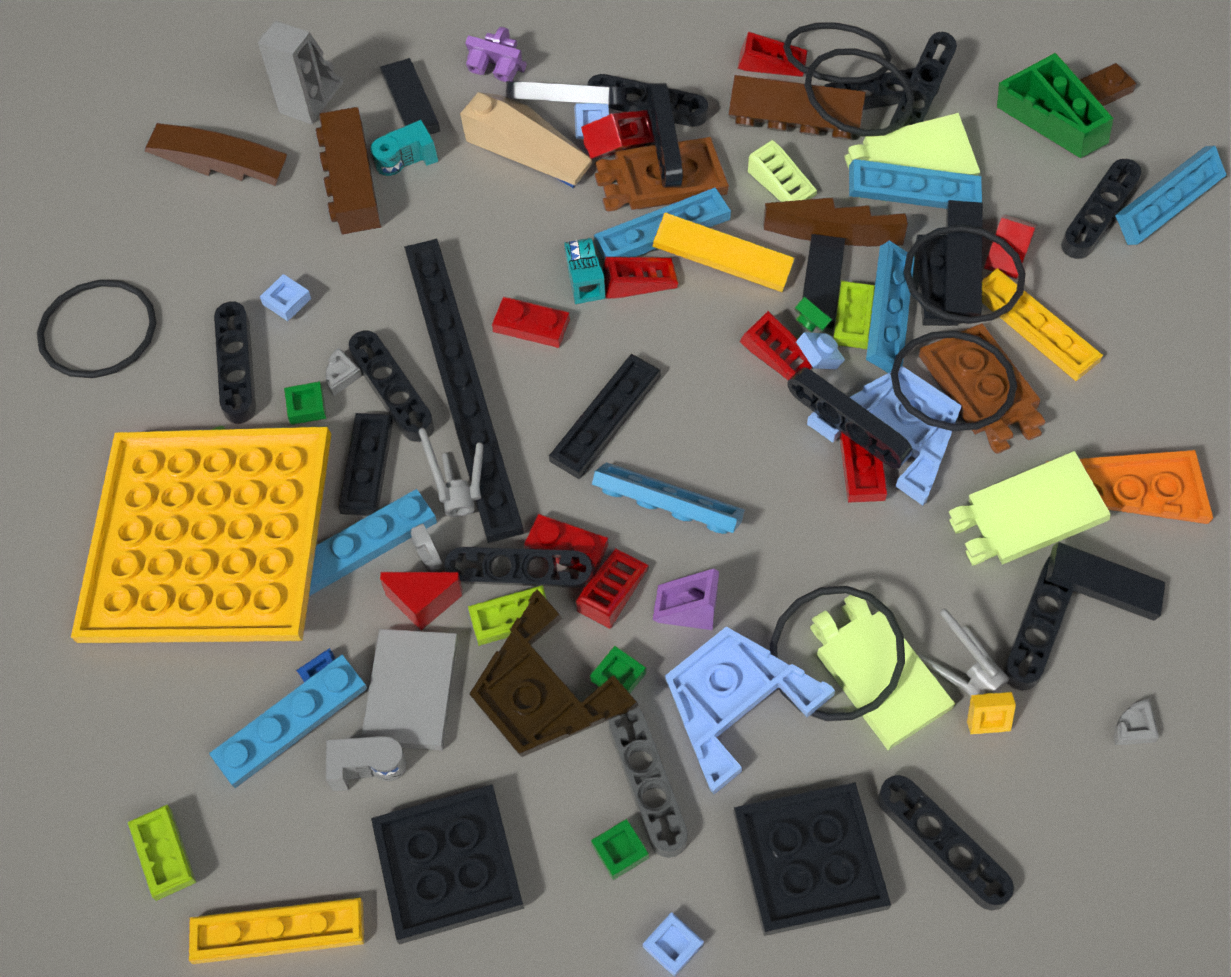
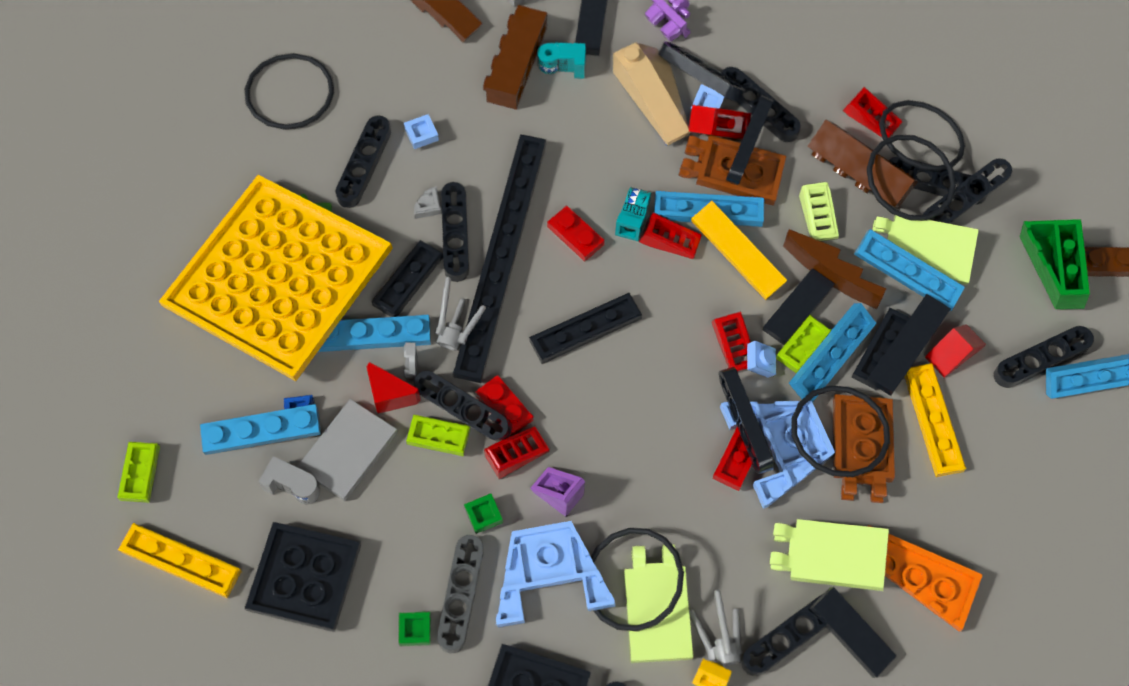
camera: 25 degrees right, 5 degrees up
(305, 403) = (391, 215): green plate -> none
(528, 697) = (416, 499): dark brown wing -> none
(658, 494) = (591, 411): dark azure plate -> none
(811, 316) = (768, 331): green plate -> none
(959, 318) = (934, 387): black piece -> none

